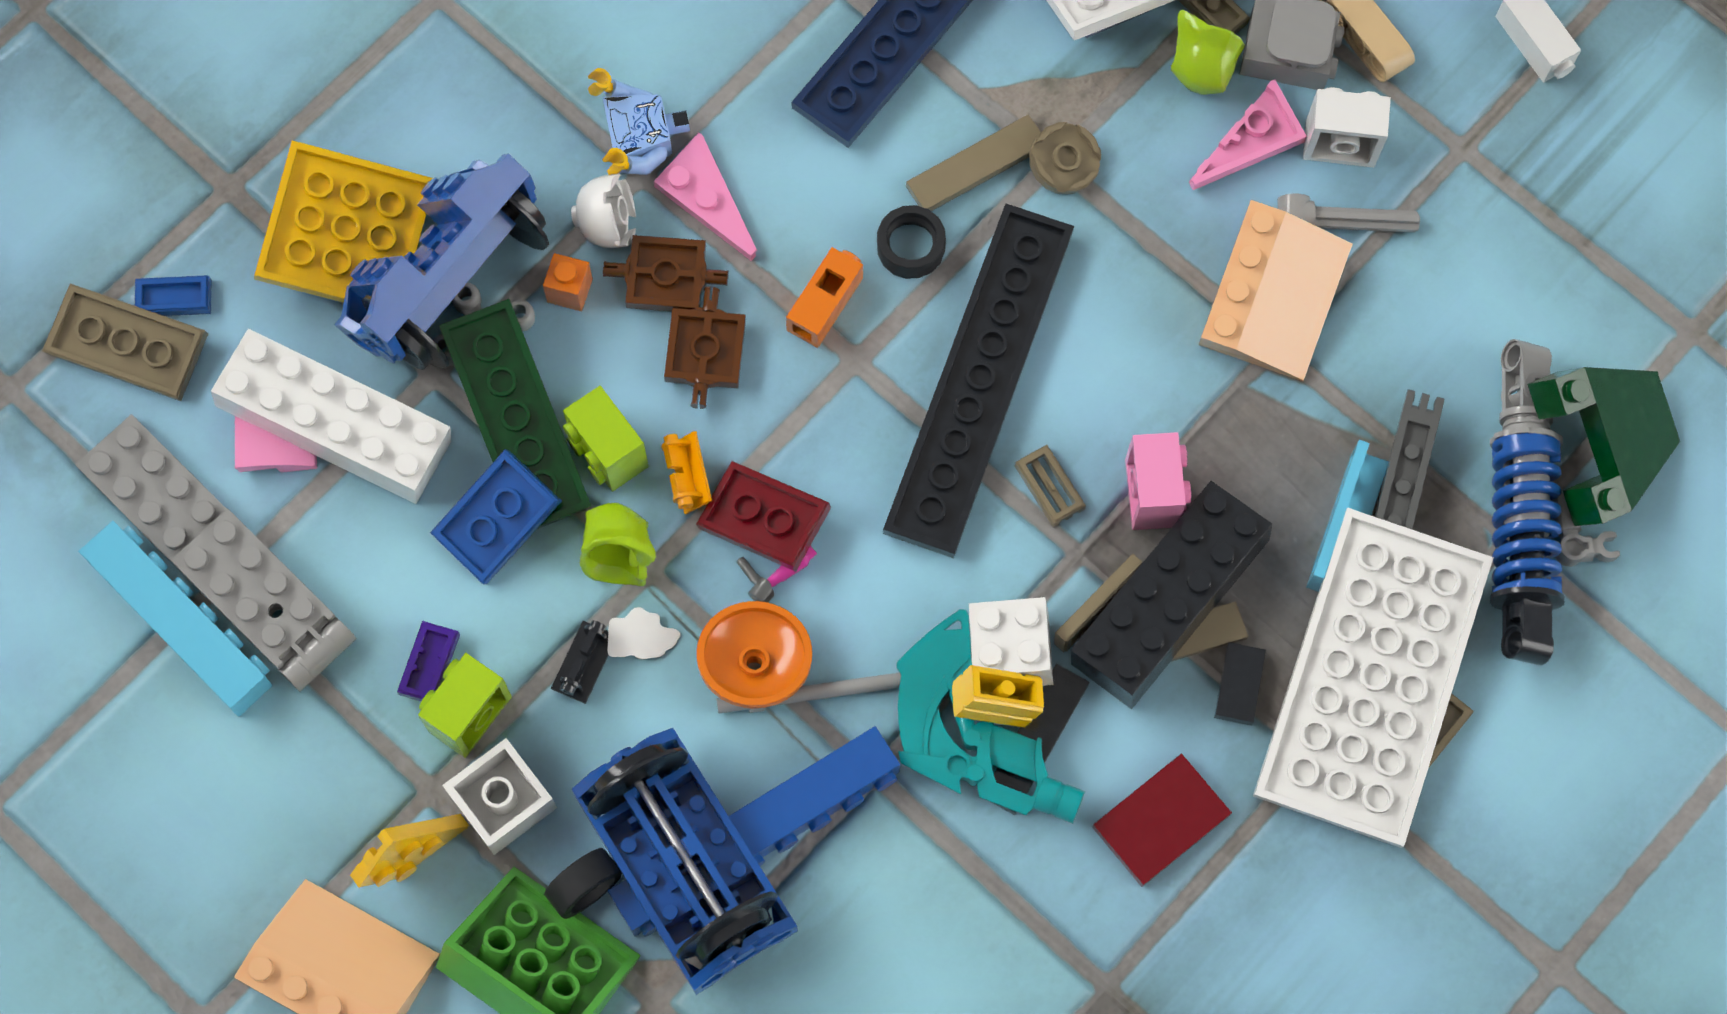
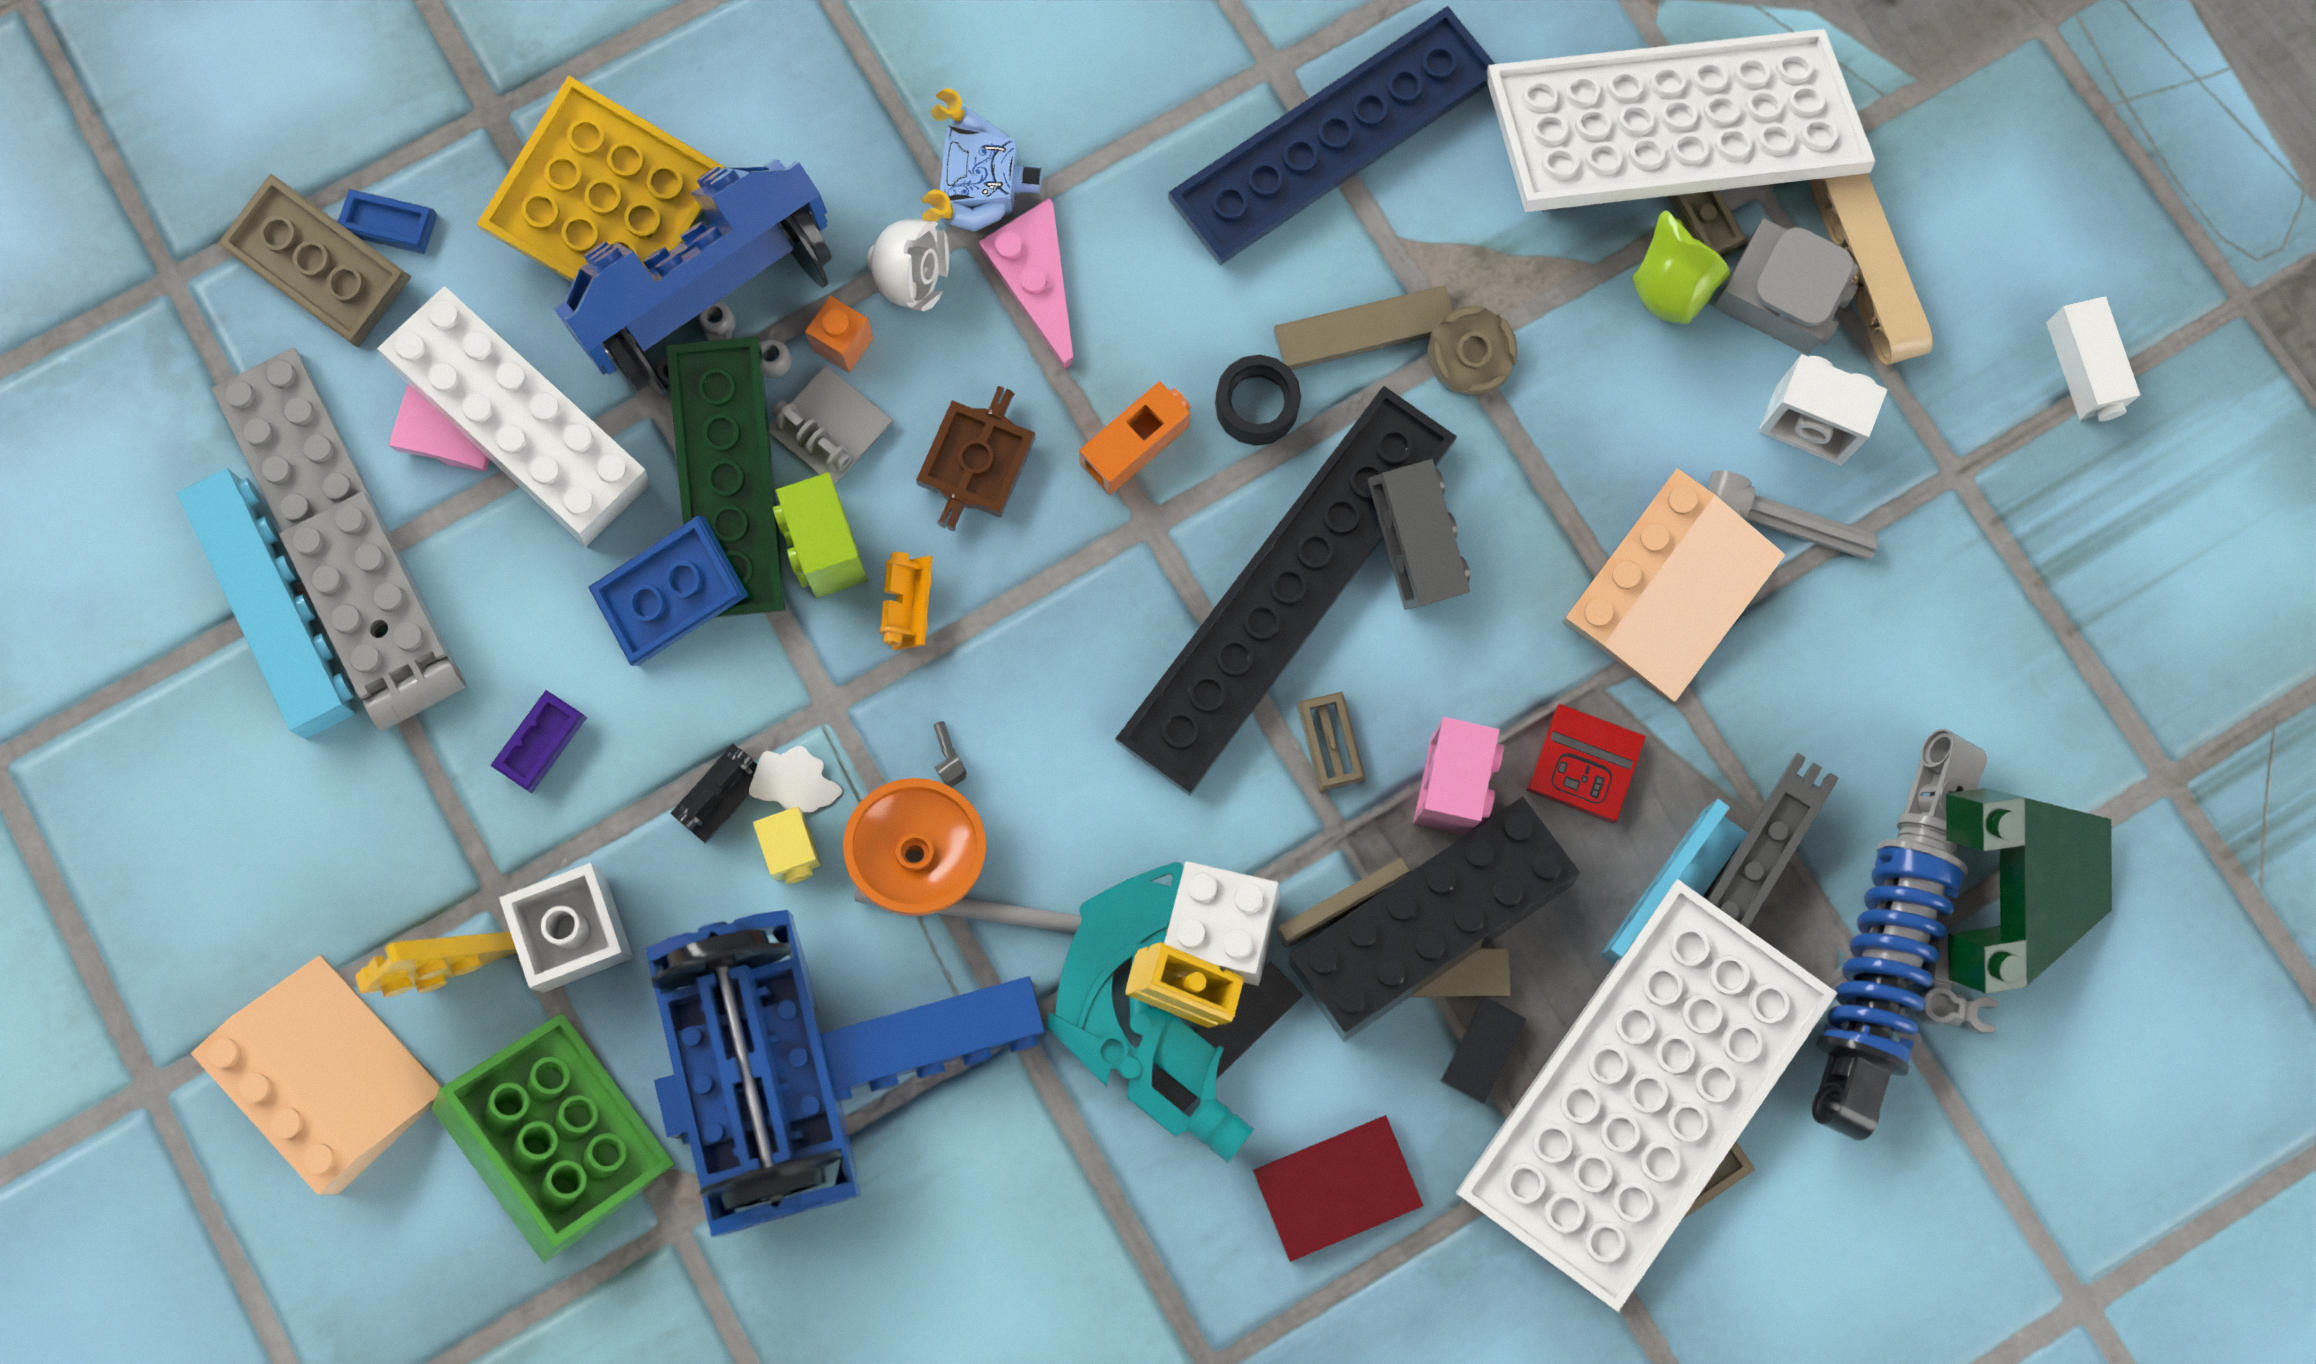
camera: 15 degrees right, 5 degrees up
(464, 704) = (557, 806): lime brick -> none
(579, 354) = (828, 424): none -> light grey hinge
(583, 883) = (626, 1062): black tyre -> none
(616, 545) = (795, 665): lime piece -> none
(653, 684) = (787, 845): none -> light yellow brick
(665, 273) = (957, 356): reddish brown plate -> none
(764, 516) = (981, 680): dark red tile -> none
(784, 573) = (1000, 747): dark pink piece -> none
(1069, 307) = (1419, 534): none -> dark grey brick
(1250, 445) = (1586, 763): none -> red tile
(1261, 133) = (1719, 386): bright pink wing -> none

